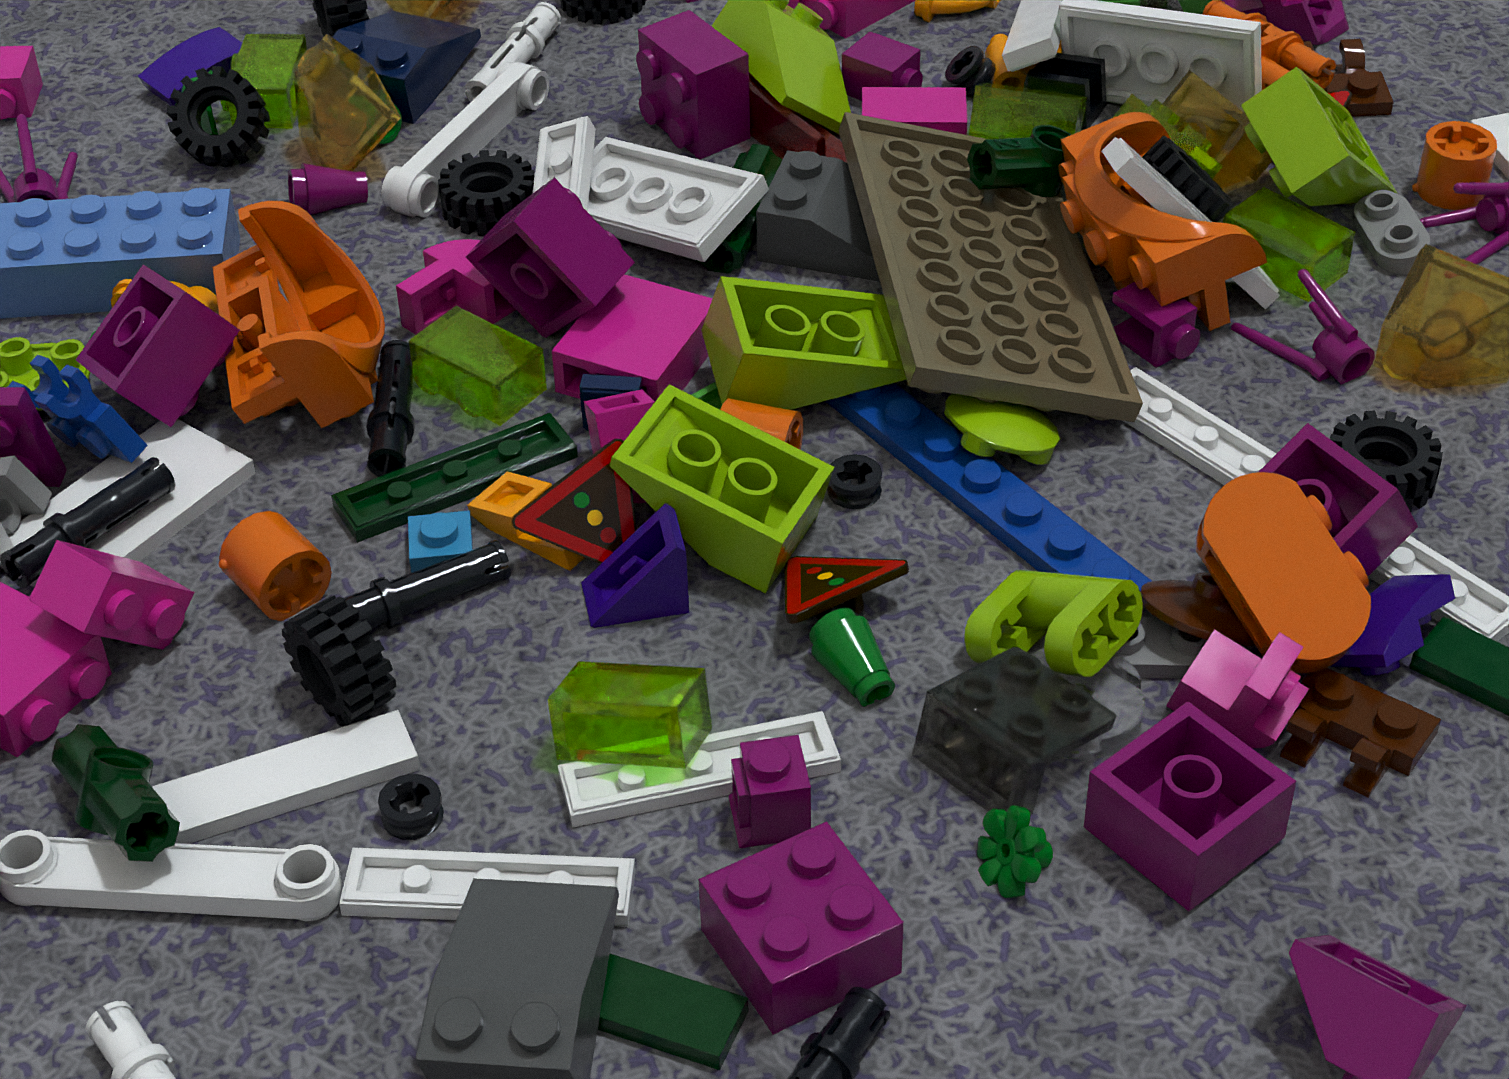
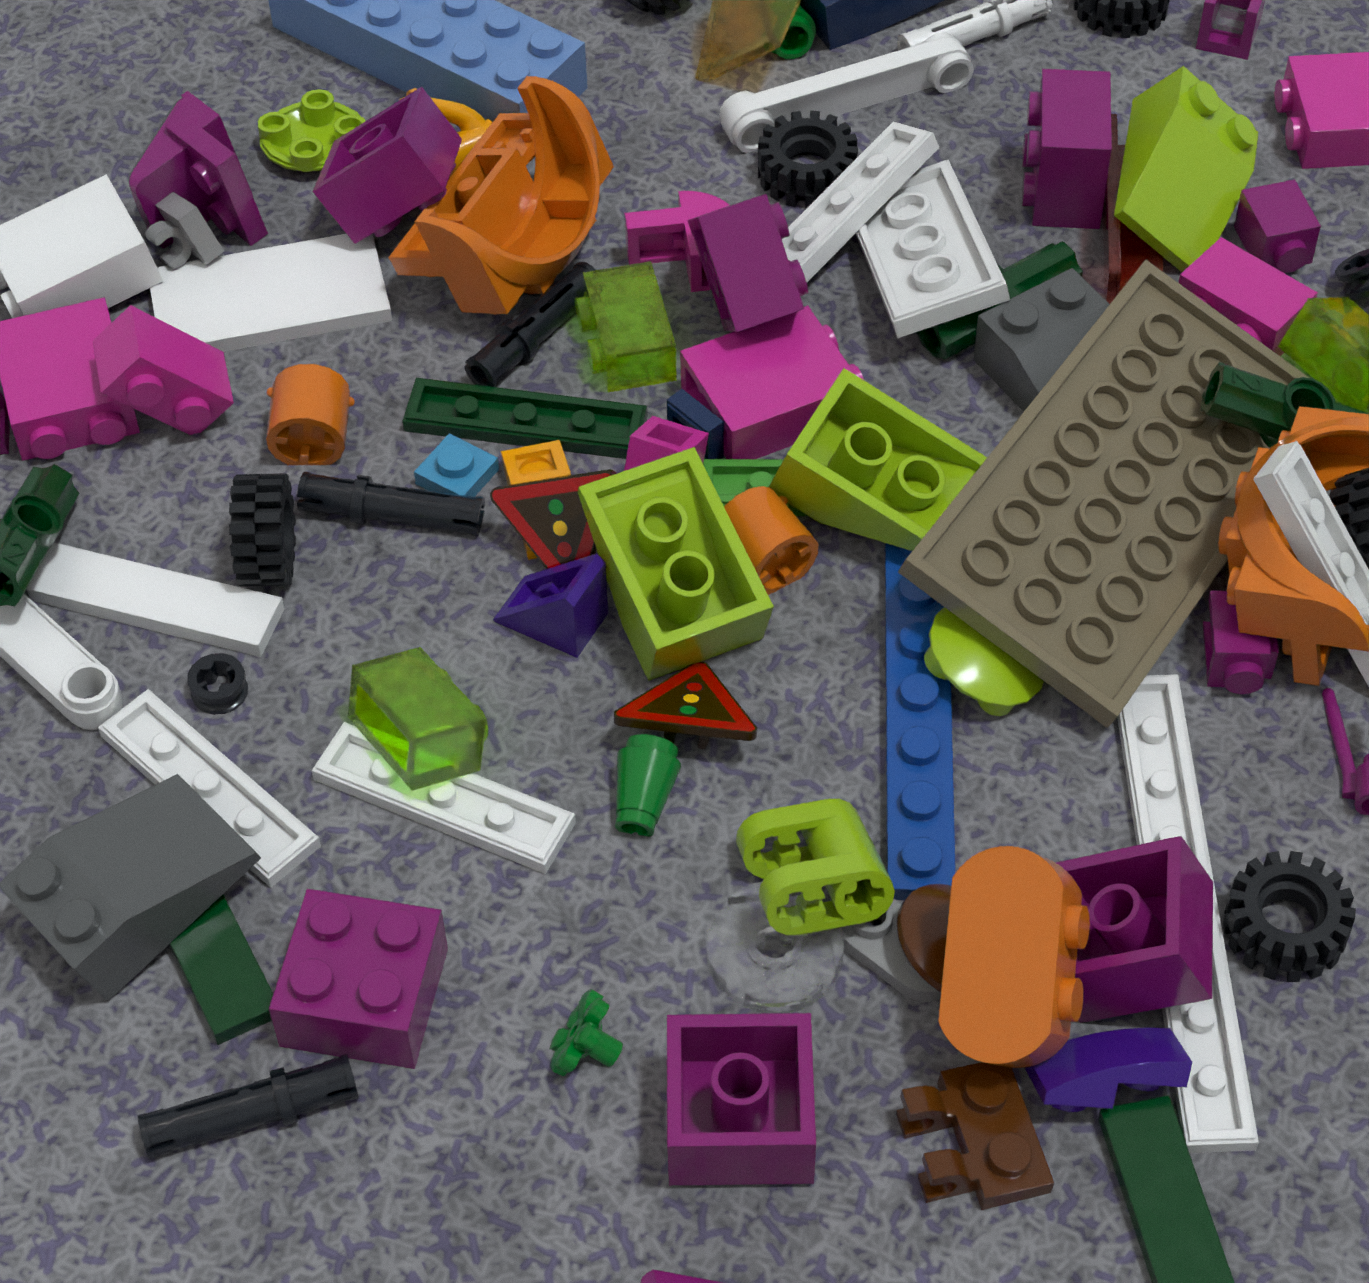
camera: 40 degrees right, 10 degrees up
(79, 414) = (295, 206): blue plate -> none
(89, 520) = (229, 292): black pin -> none
(325, 188) = (684, 79): magenta cone -> none
(770, 791) = (449, 847): magenta window -> none
(859, 495) = (830, 638): black bush -> none
(1002, 727) = (687, 929): clear smoke bracket -> none
(1242, 690) = (893, 1033): dark pink brick -> none

